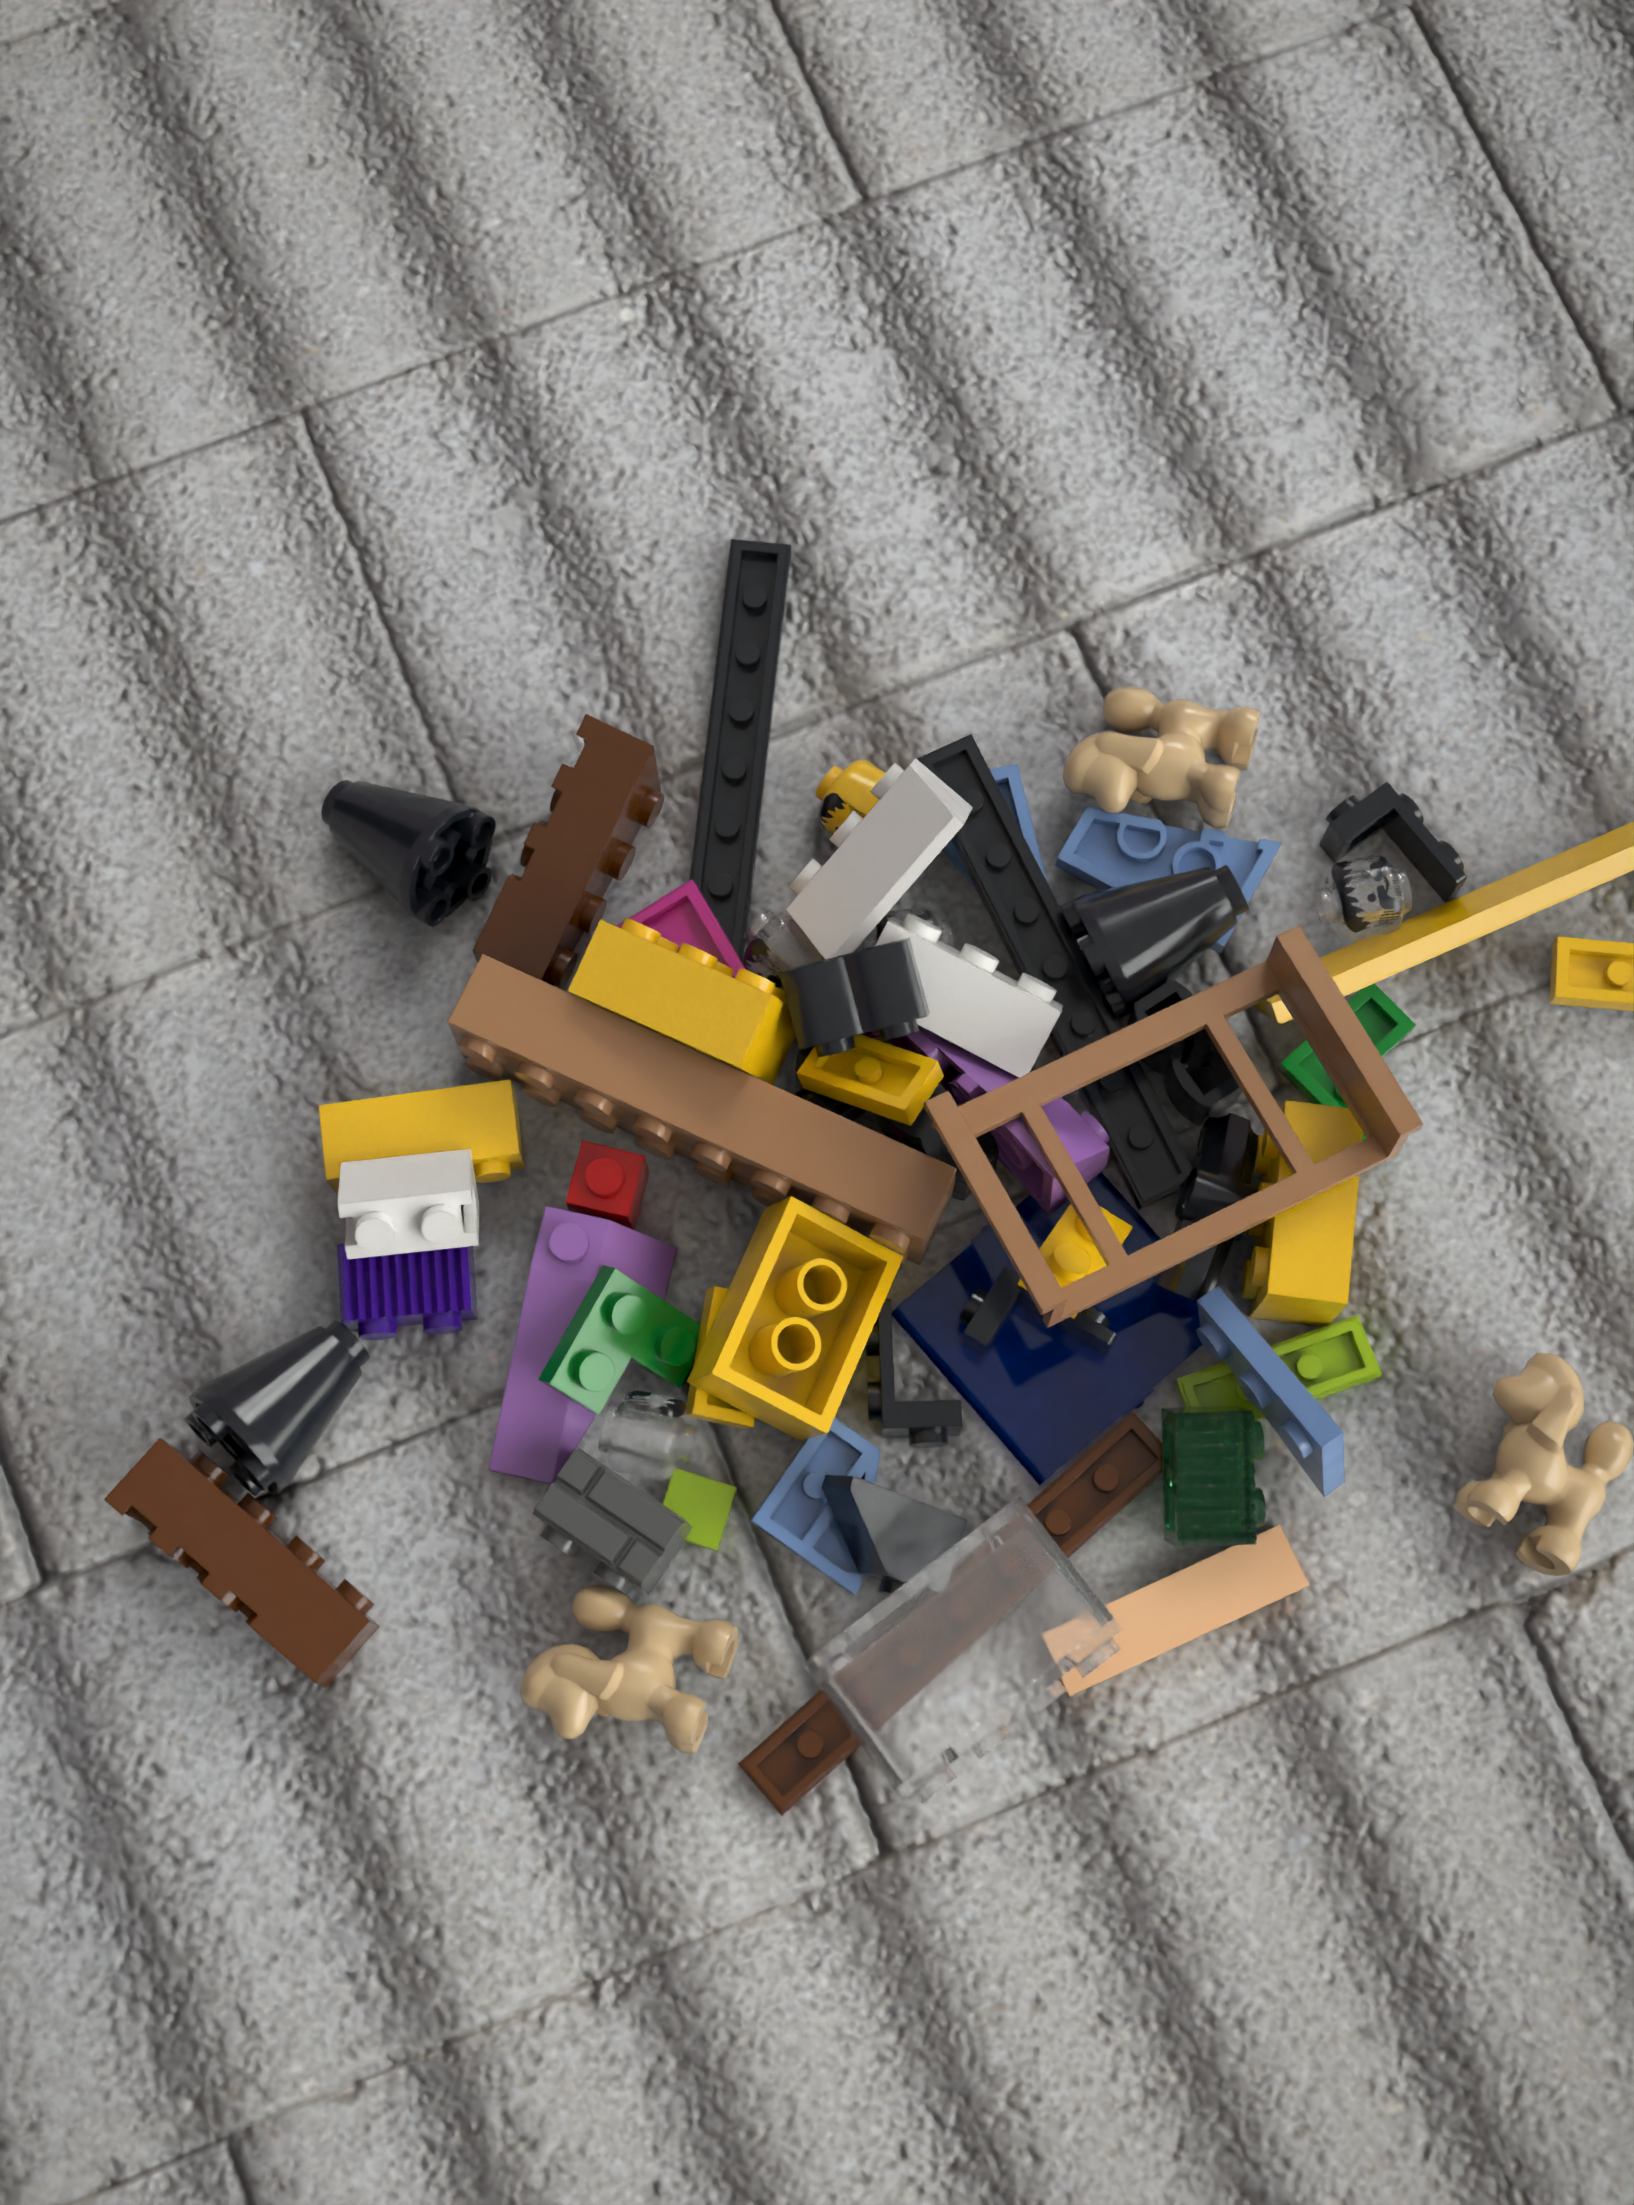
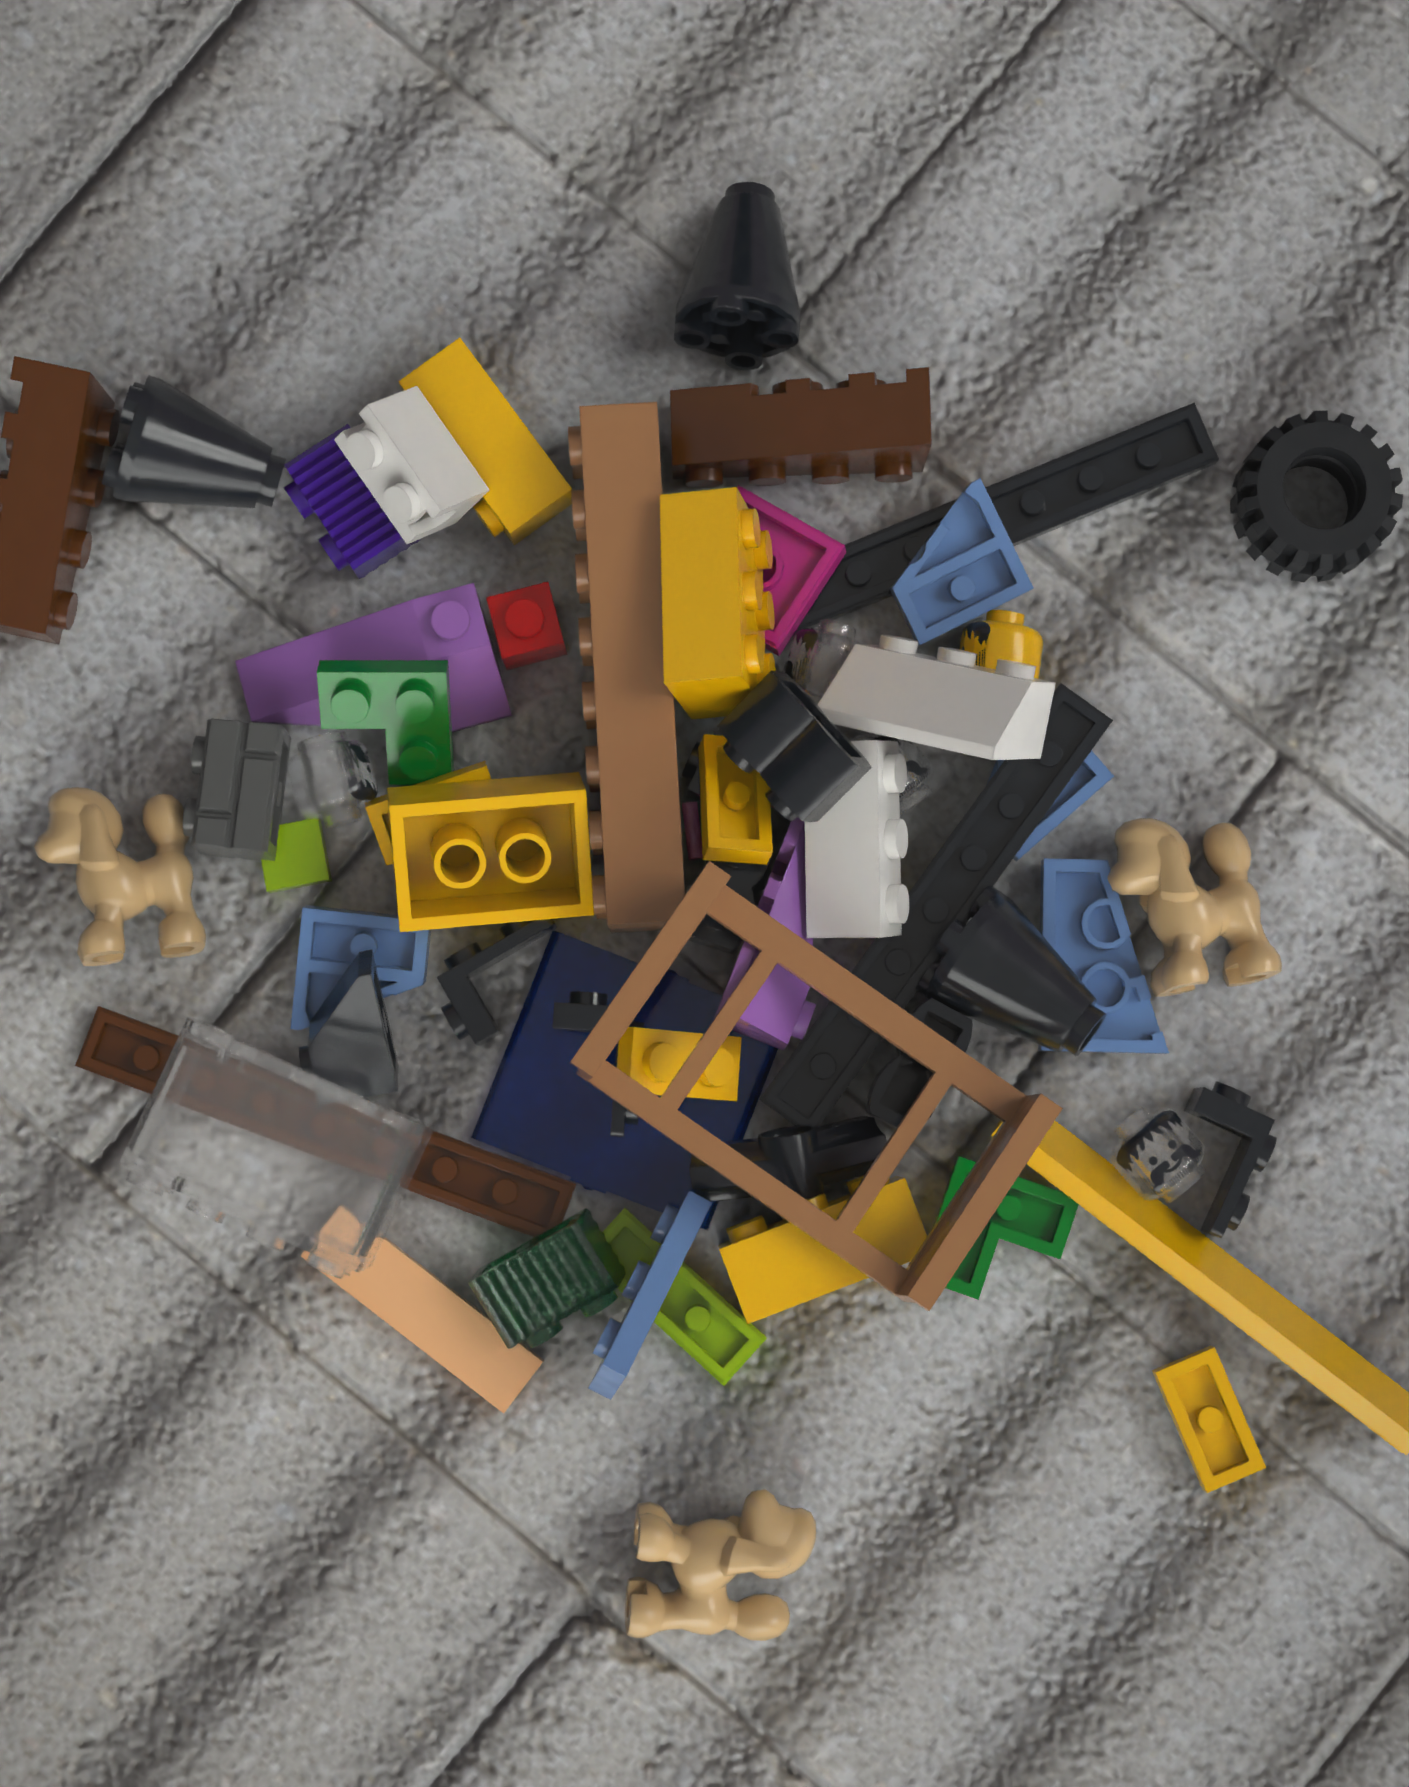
camera: 60 degrees right, 10 degrees up
(766, 795) = (960, 569): none -> medium blue wing
(869, 437) = (1348, 458): none -> black tyre

